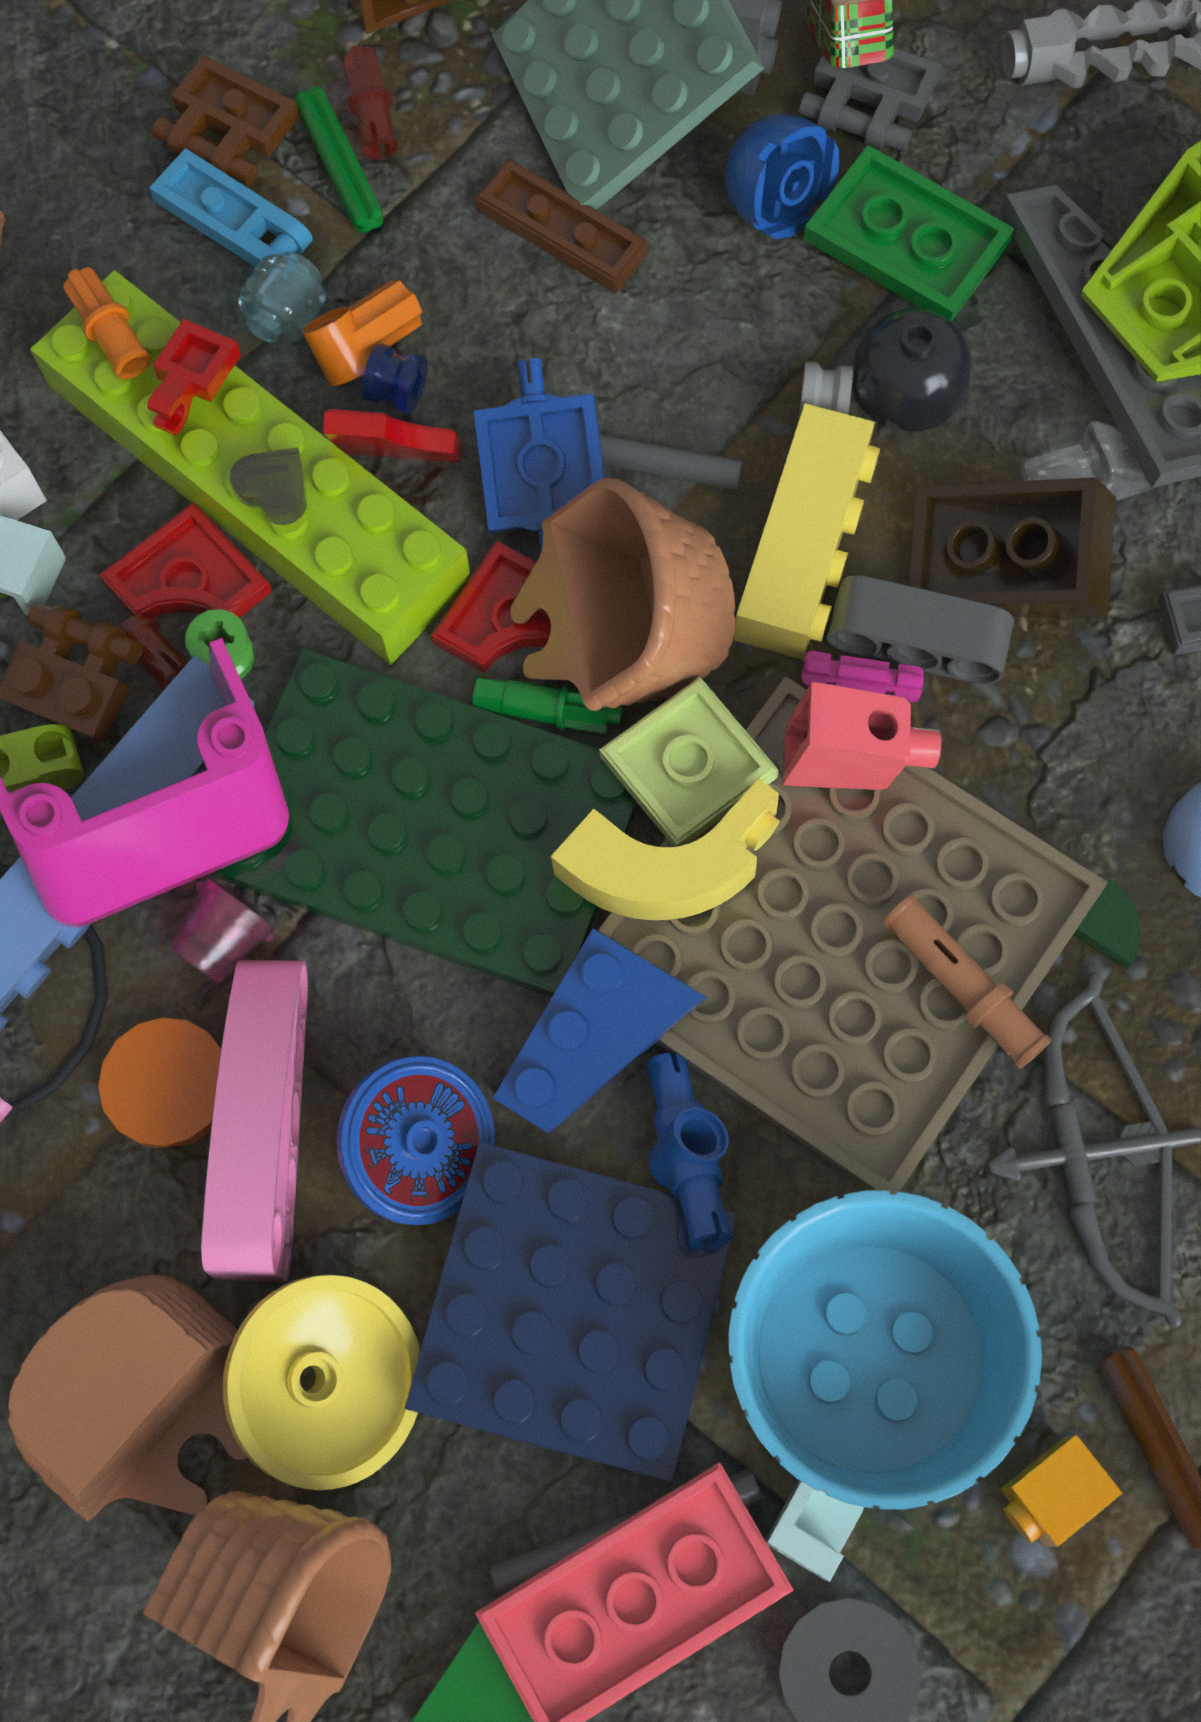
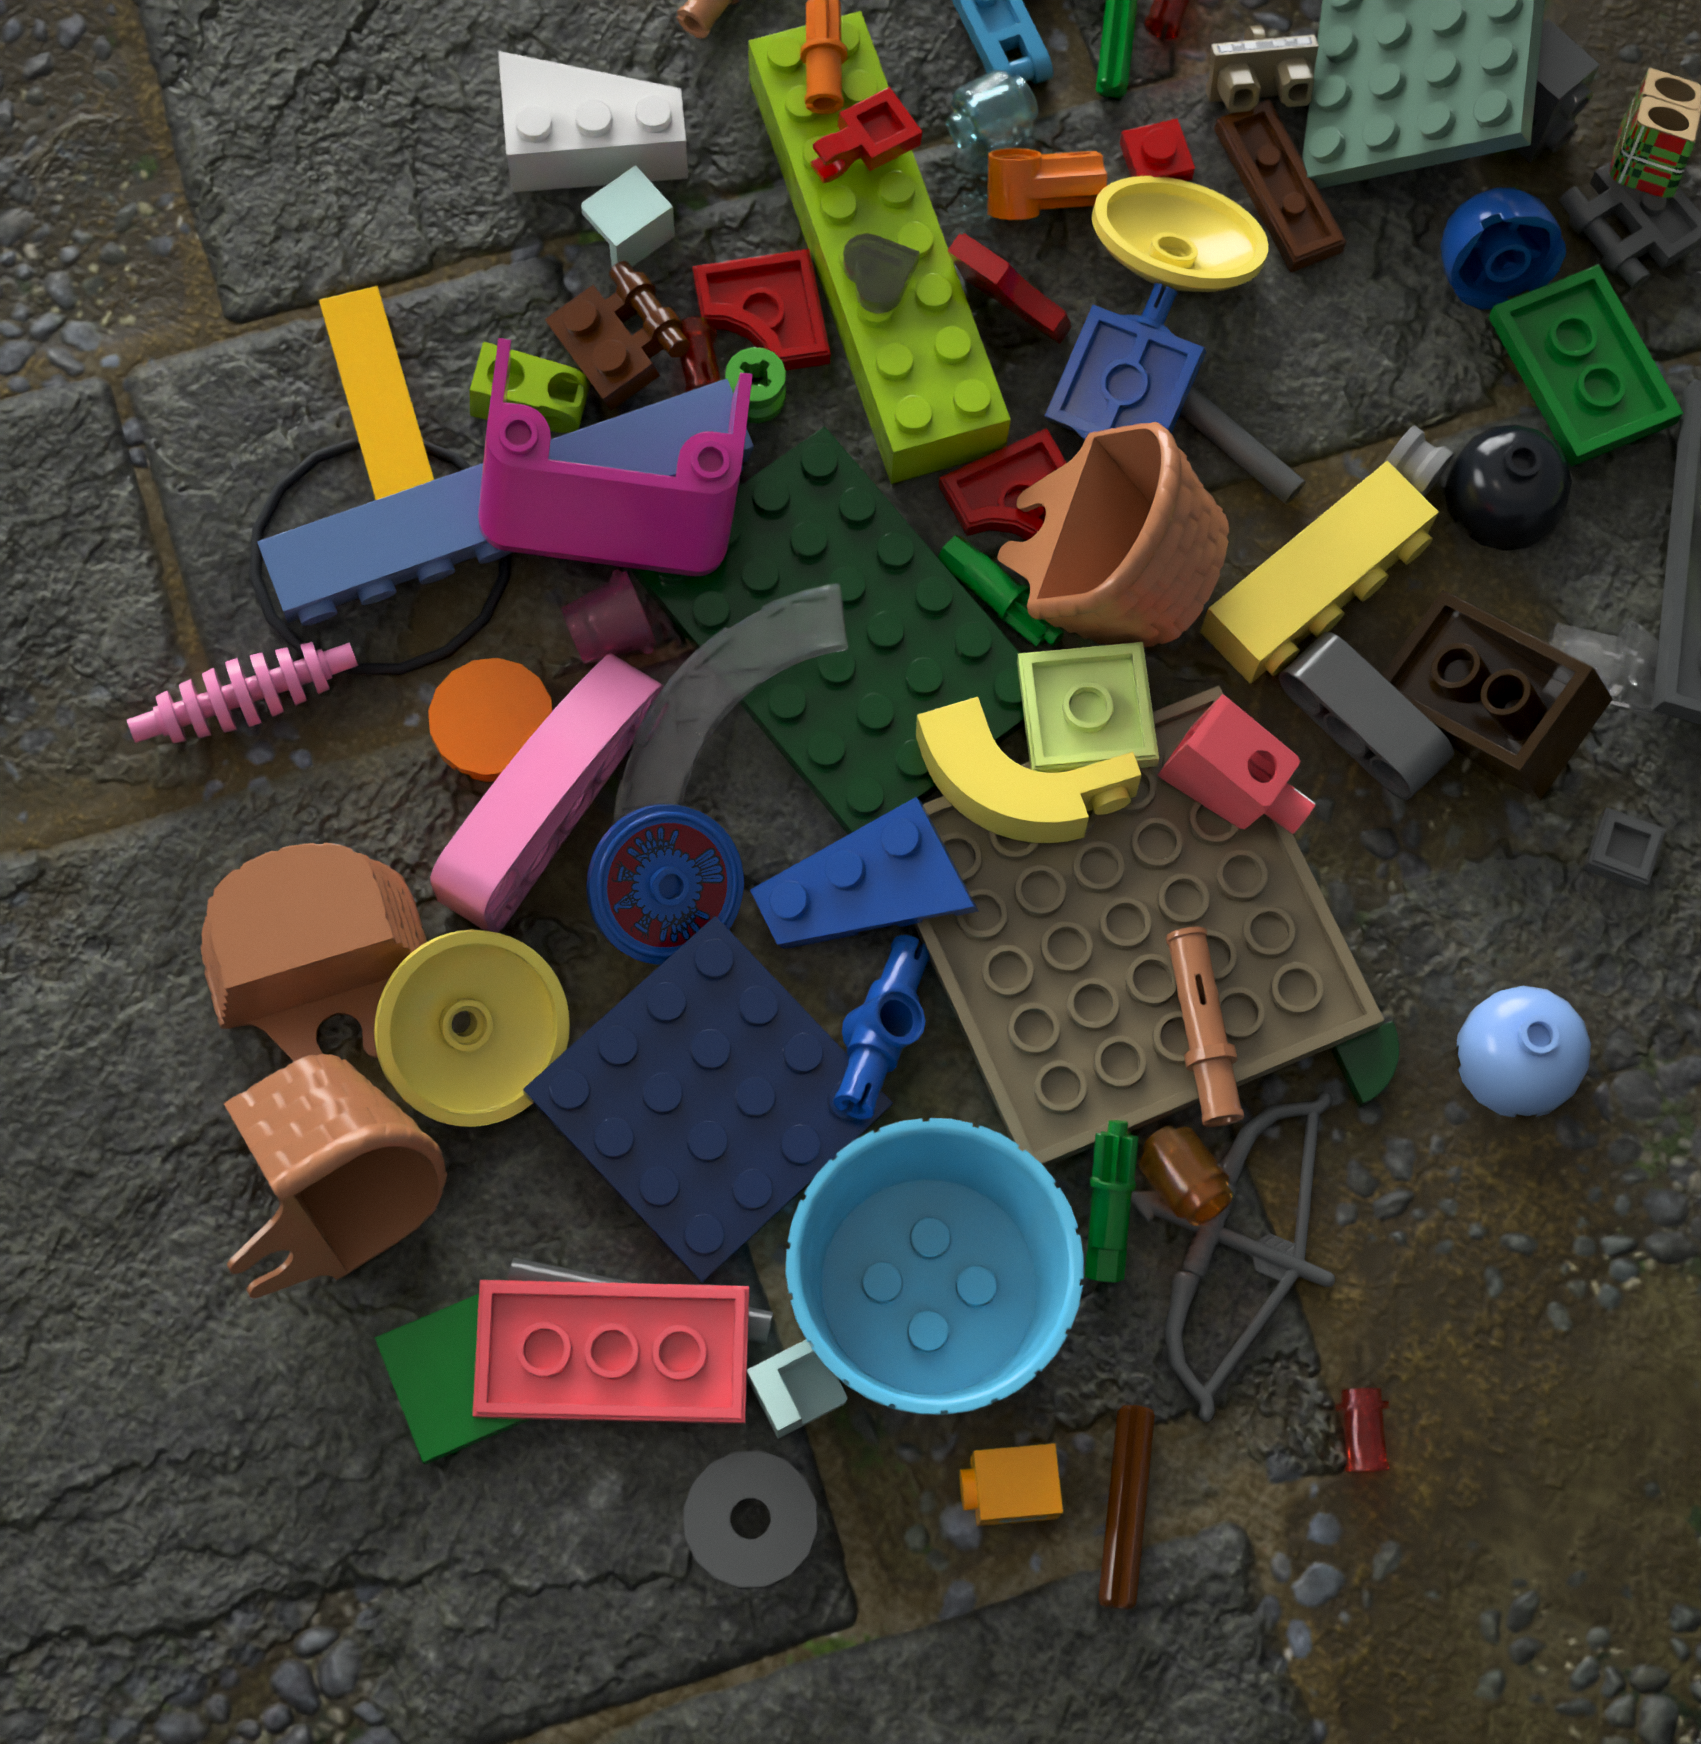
camera: 25 degrees right, 0 degrees up
(347, 937) = (715, 681): none -> clear tile
(394, 377) = (1046, 238): clear blue wheel -> none
(443, 257) = (1157, 151): none -> red plate
(488, 134) = (1262, 69): none -> dark tan hips
(508, 311) = (1179, 234): none -> light yellow dish
(863, 675) = (1290, 726): dark pink axle -> none
(976, 1172) = (1111, 1202): none -> green piece
(1028, 1120) = (1186, 1174): none -> clear orange brick

